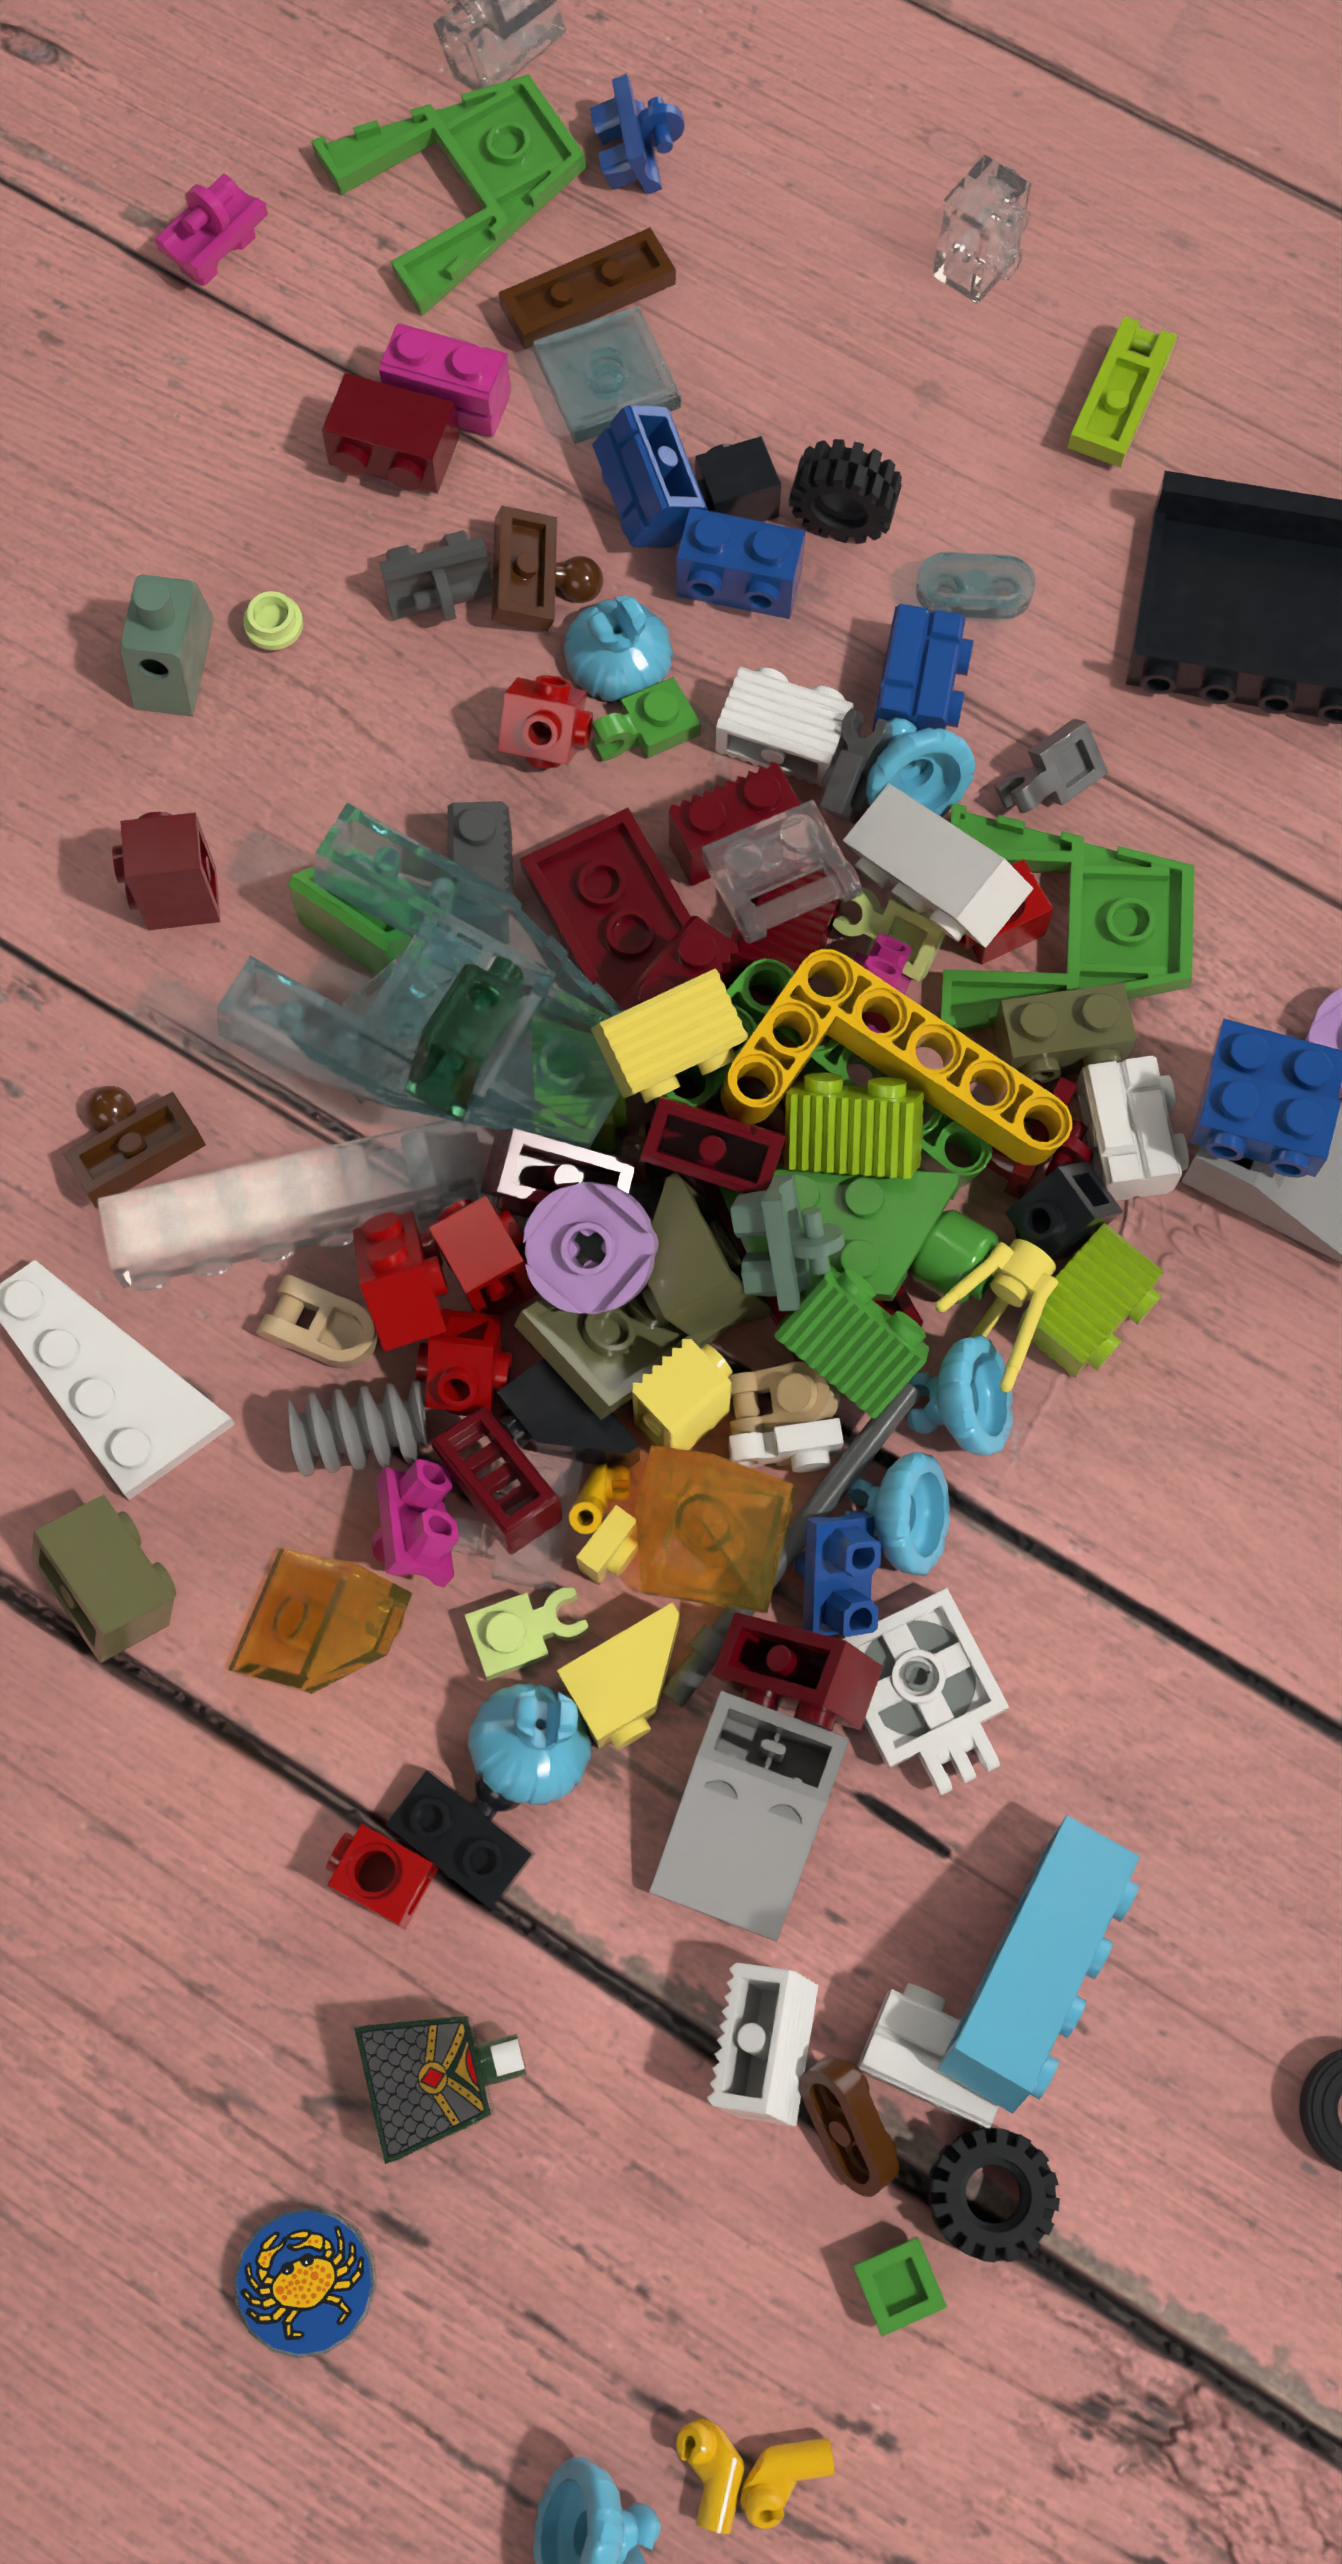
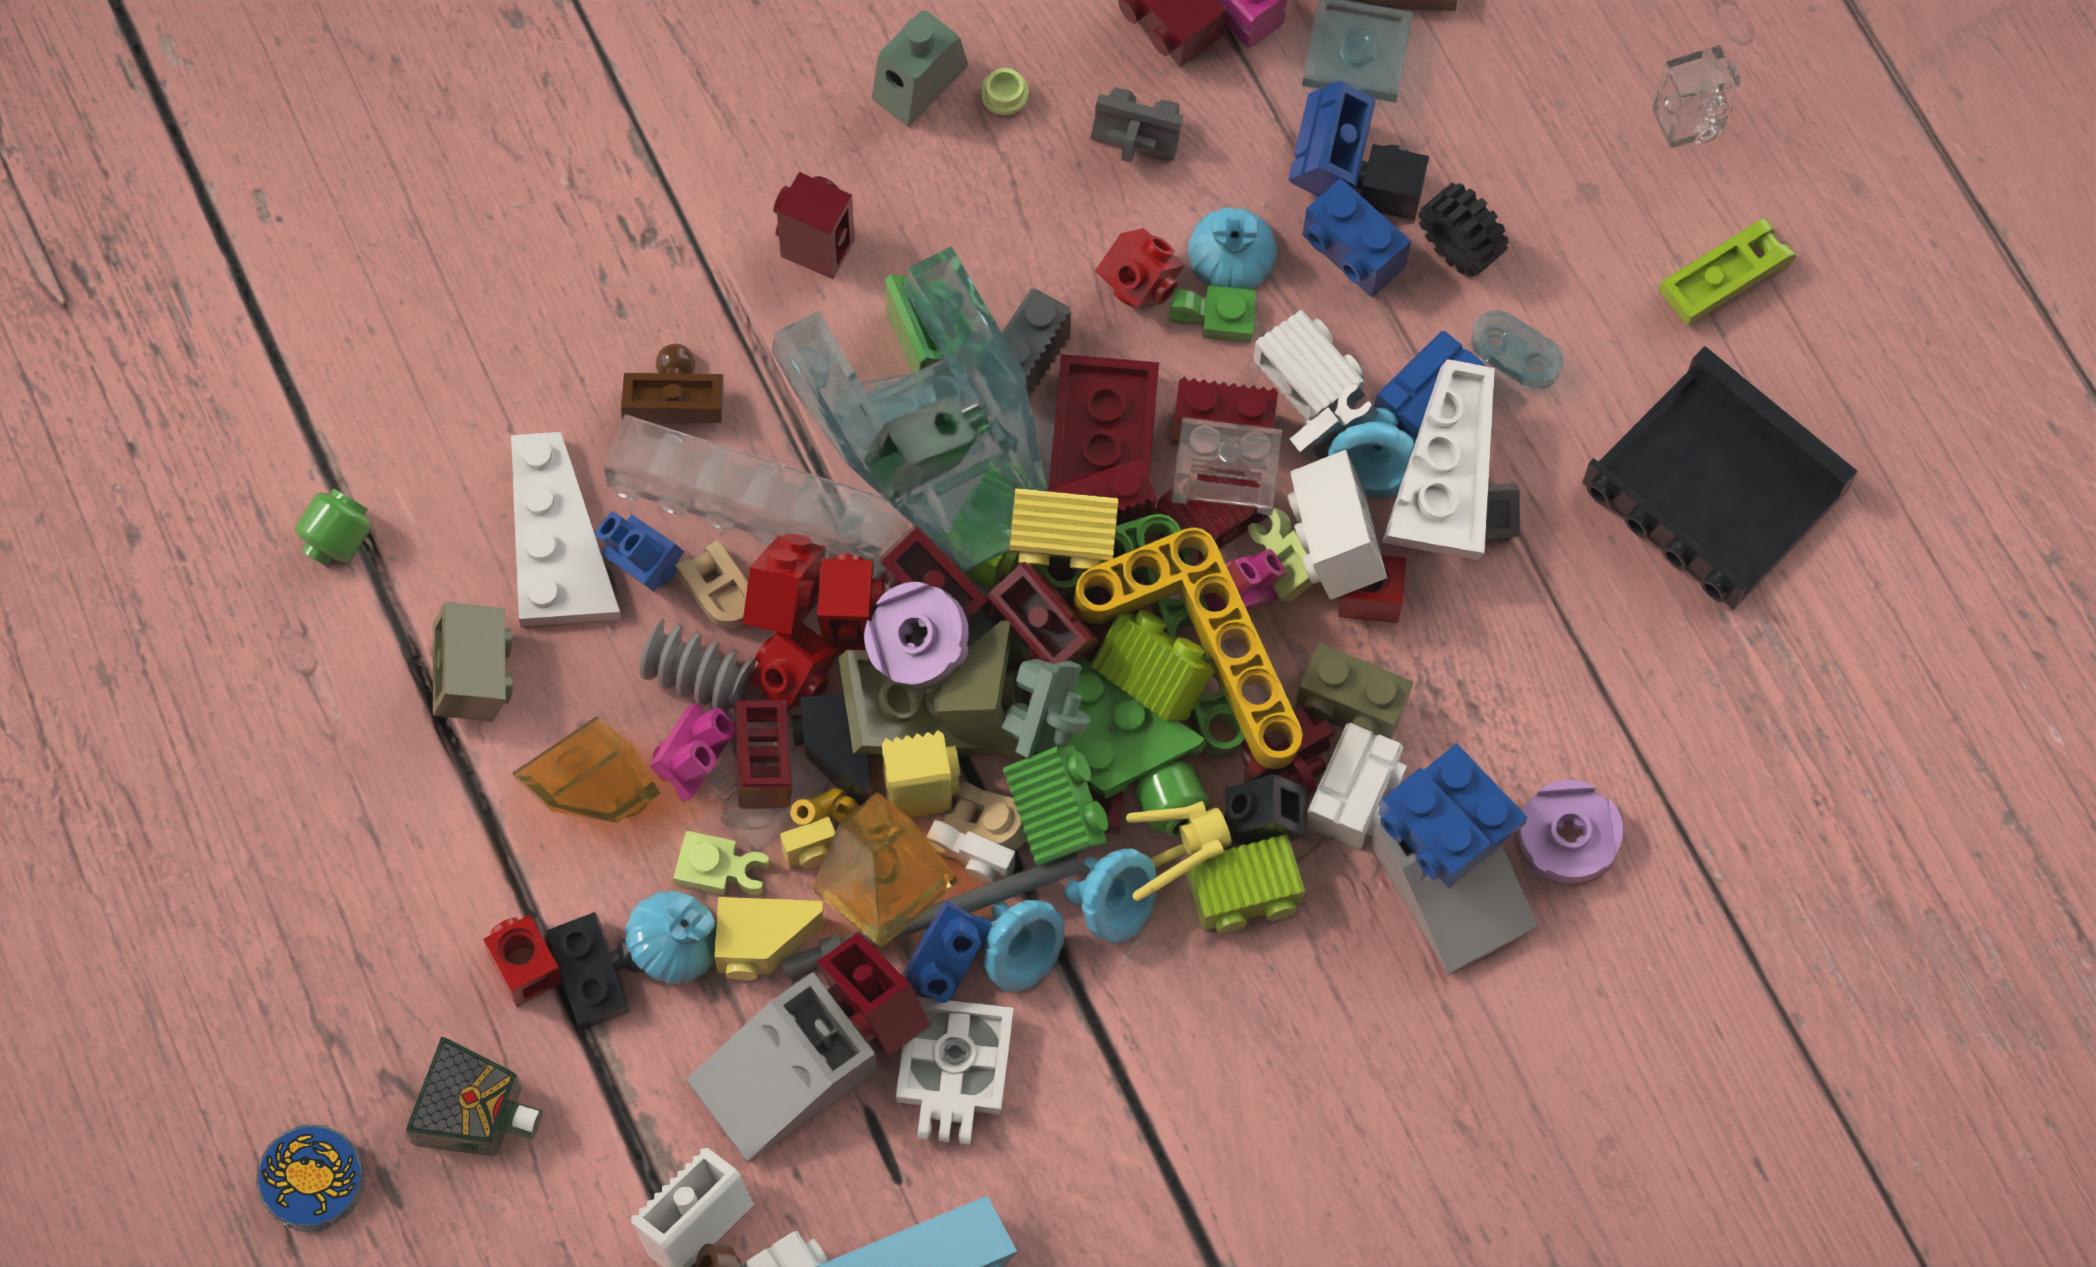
camera: 30 degrees right, 5 degrees down
(210, 1337) = (639, 550): none -> blue hips
(528, 571) = (1205, 157): reddish brown plate -> none
(1012, 748) = (1447, 475): none -> white wing
(1124, 921) = (1449, 650): bright green wing -> none

